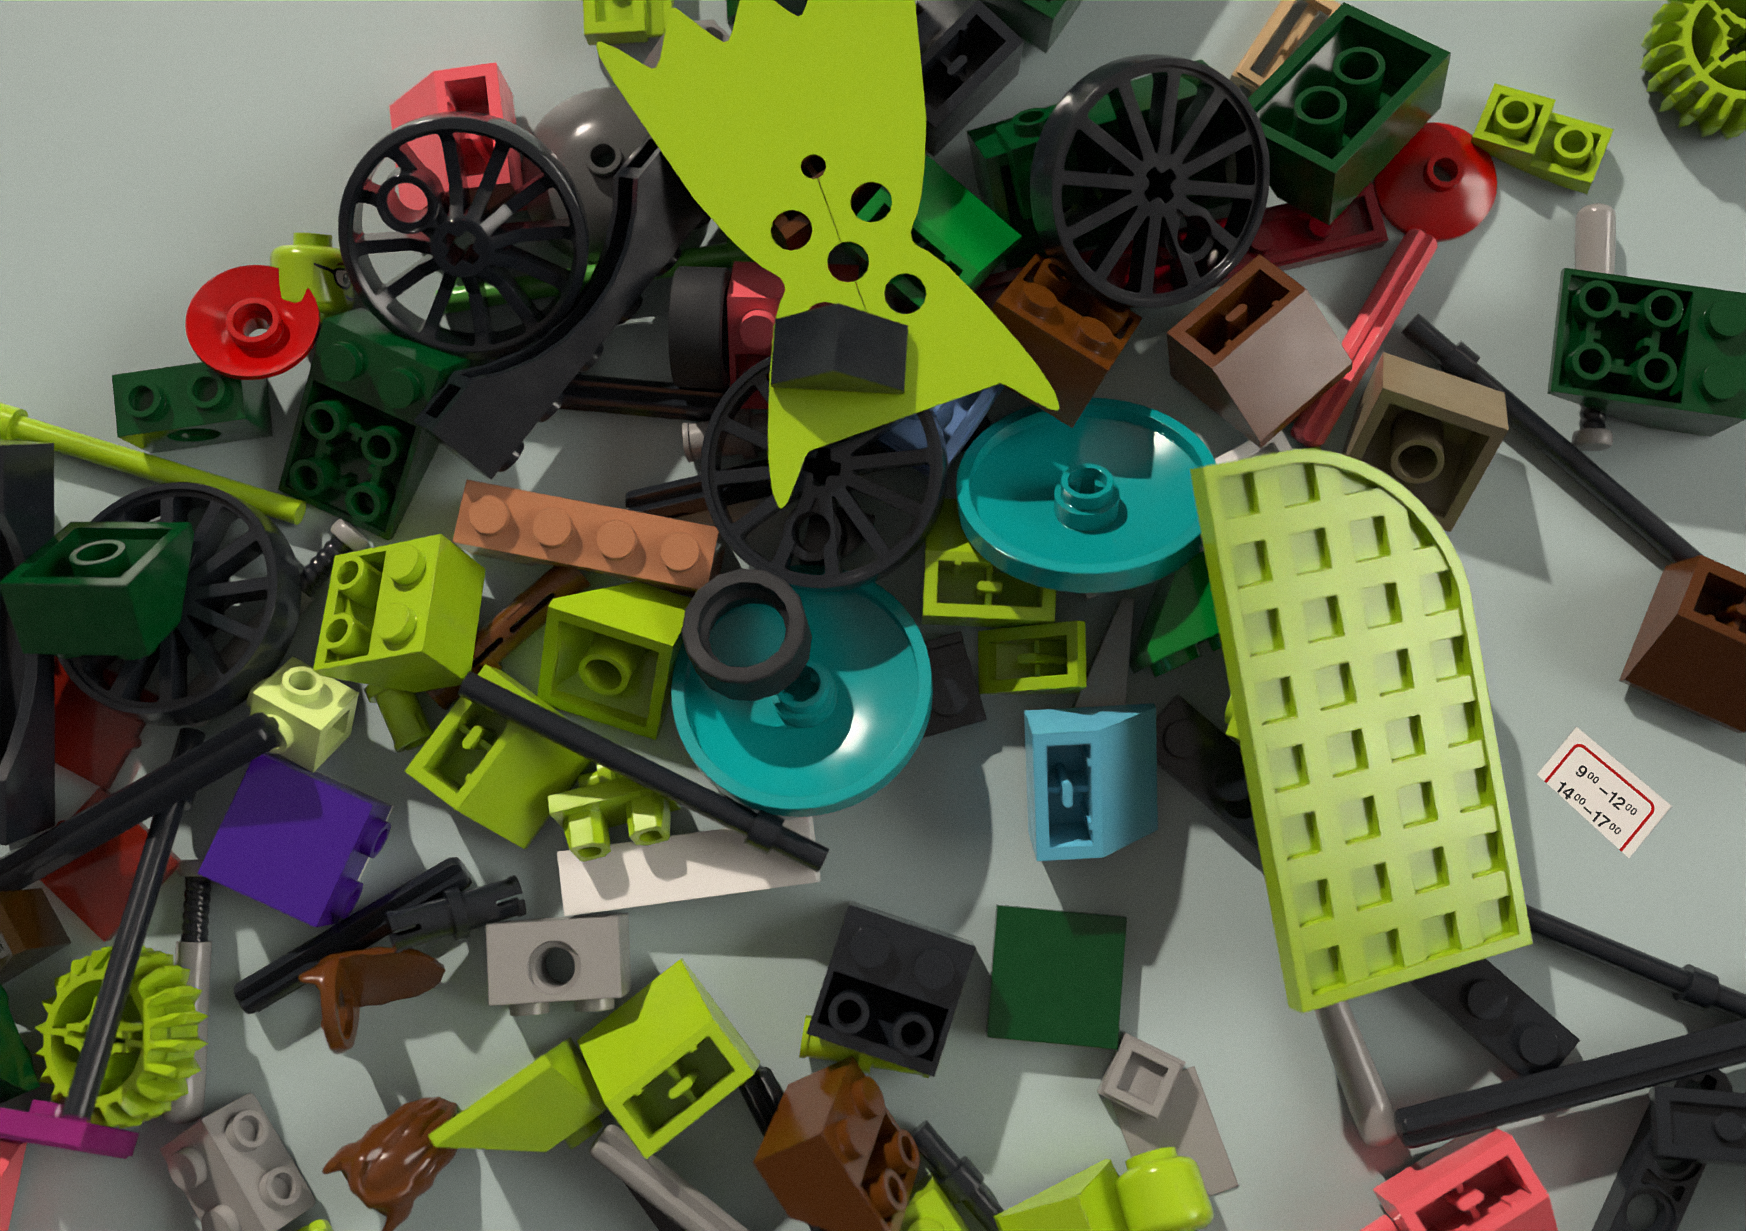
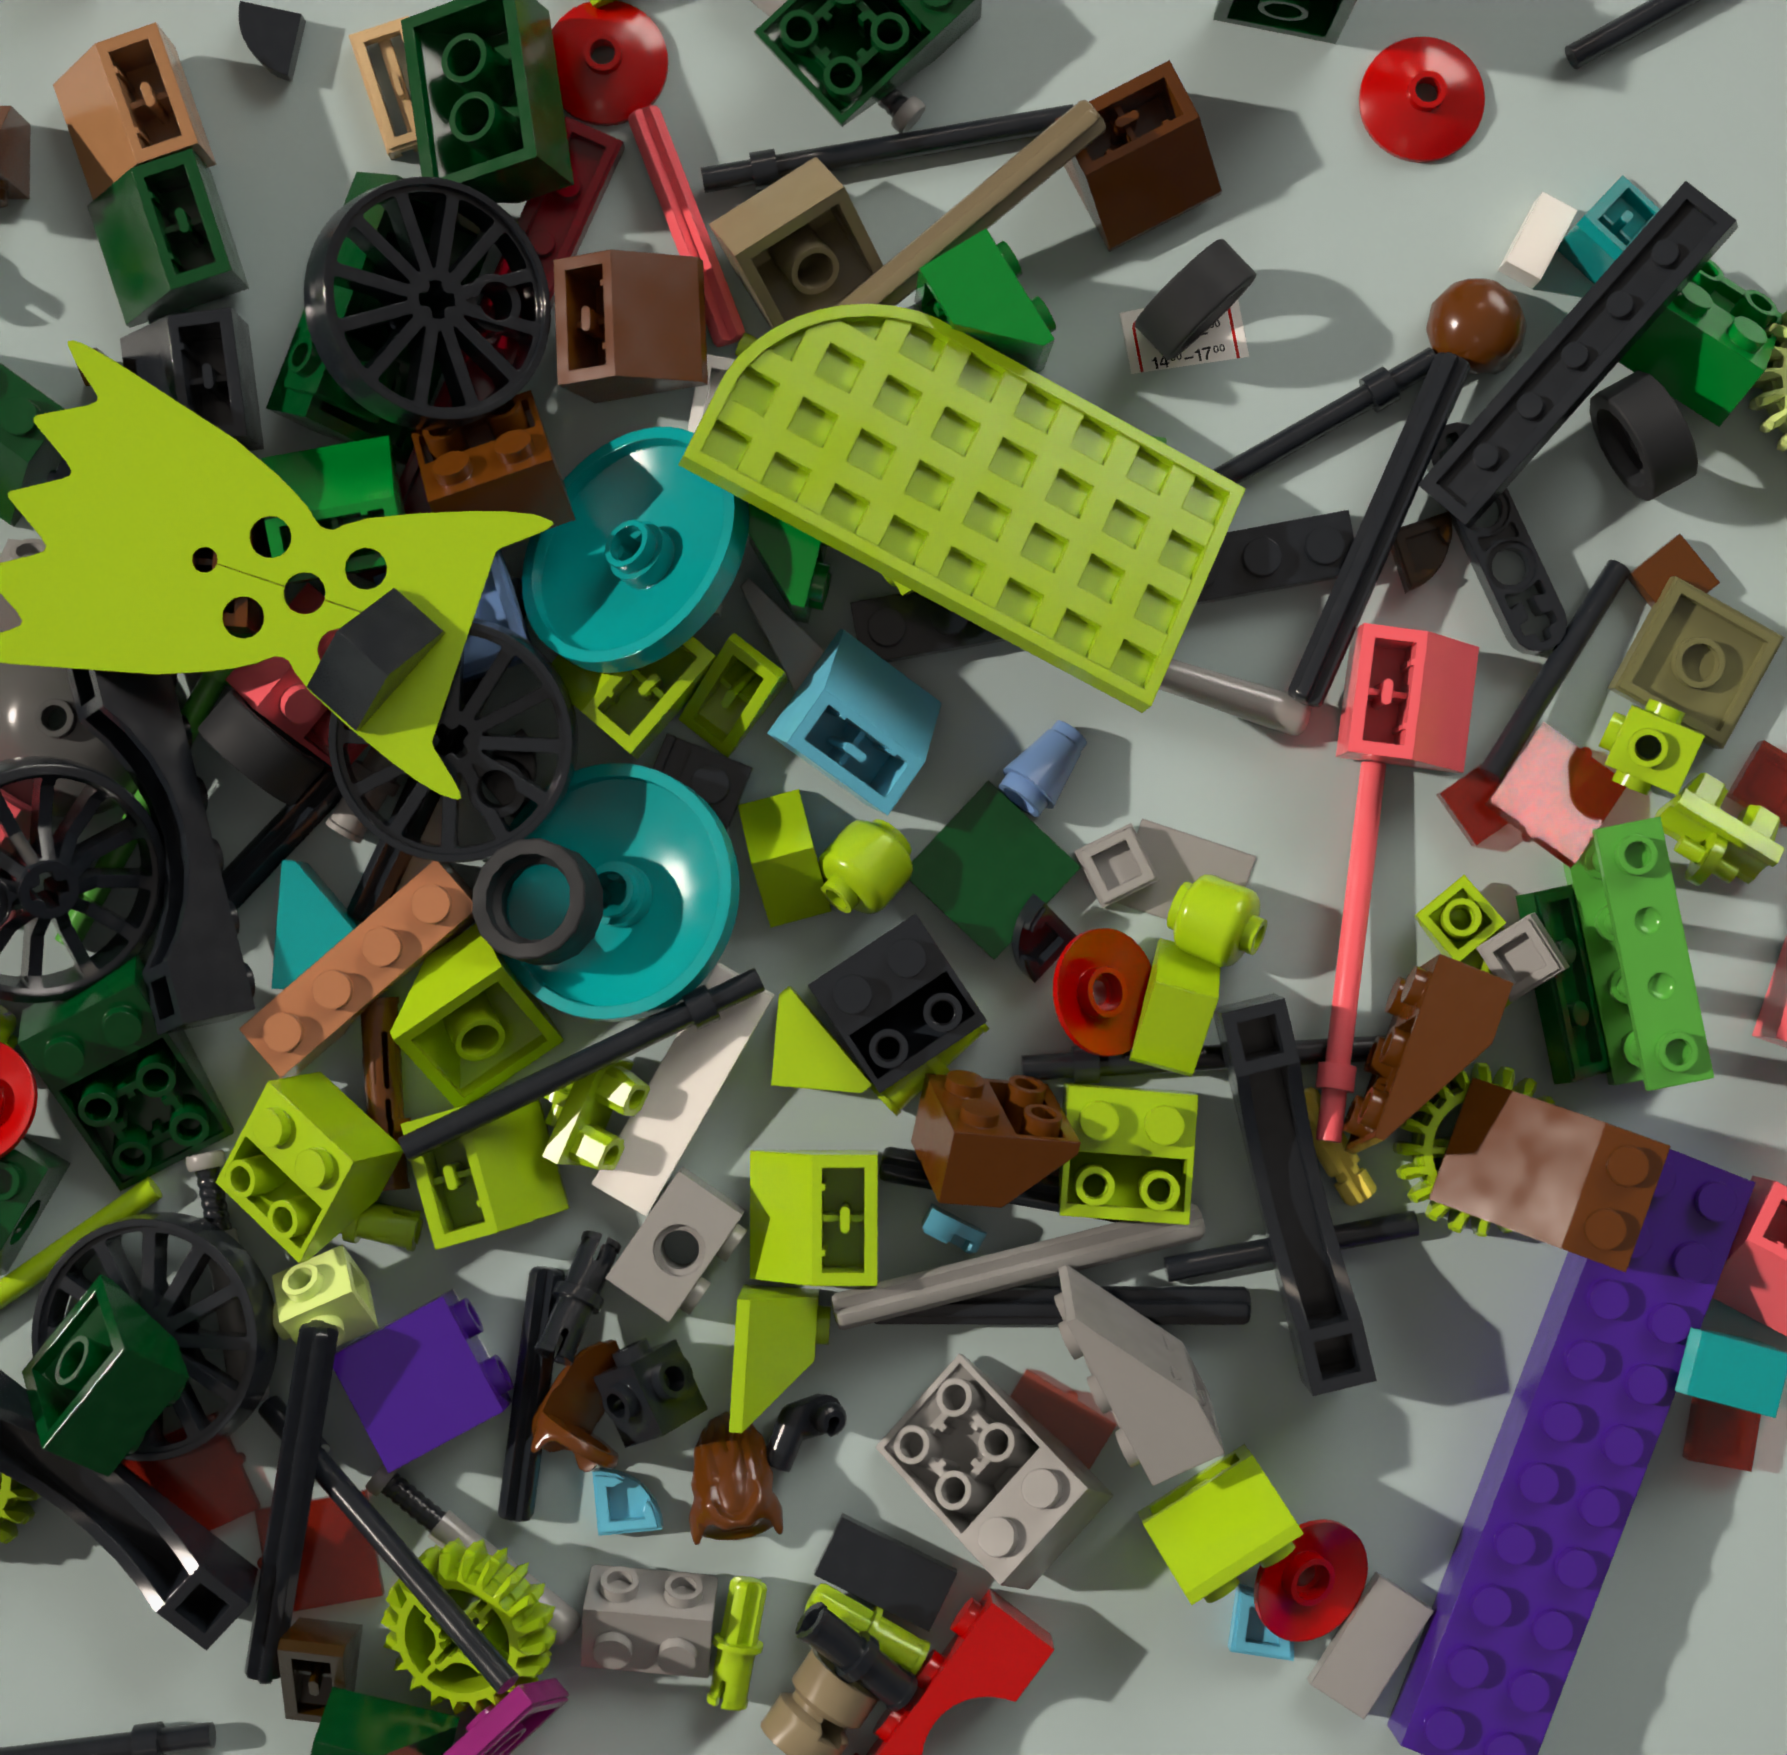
camera: 60 degrees left, 5 degrees up
(318, 1082) = (624, 1504): none -> medium azure tile
(422, 1033) = (649, 1391): none -> black brick
(492, 1173) = (803, 1421): none -> black arm
(593, 469) = (307, 922): none -> teal slope
(741, 1174) = (952, 1229): none -> medium azure tile
(794, 947) = (808, 1053): none -> lime slope
(935, 802) = (783, 858): none -> lime slope
(980, 873) = (865, 866): none -> lime head
(1031, 1148) = (1101, 990): none -> red dish
(1033, 1060) = (1038, 938): none -> black tile
(1170, 955) = (1041, 771): none -> medium blue cone
(1516, 609) = (980, 295): none -> green slope
(1592, 554) = (984, 204): none -> dark tan axle
(1596, 1128) = (1421, 550): none -> dark brown tile
(1649, 780) = (1195, 299): none -> black tyre

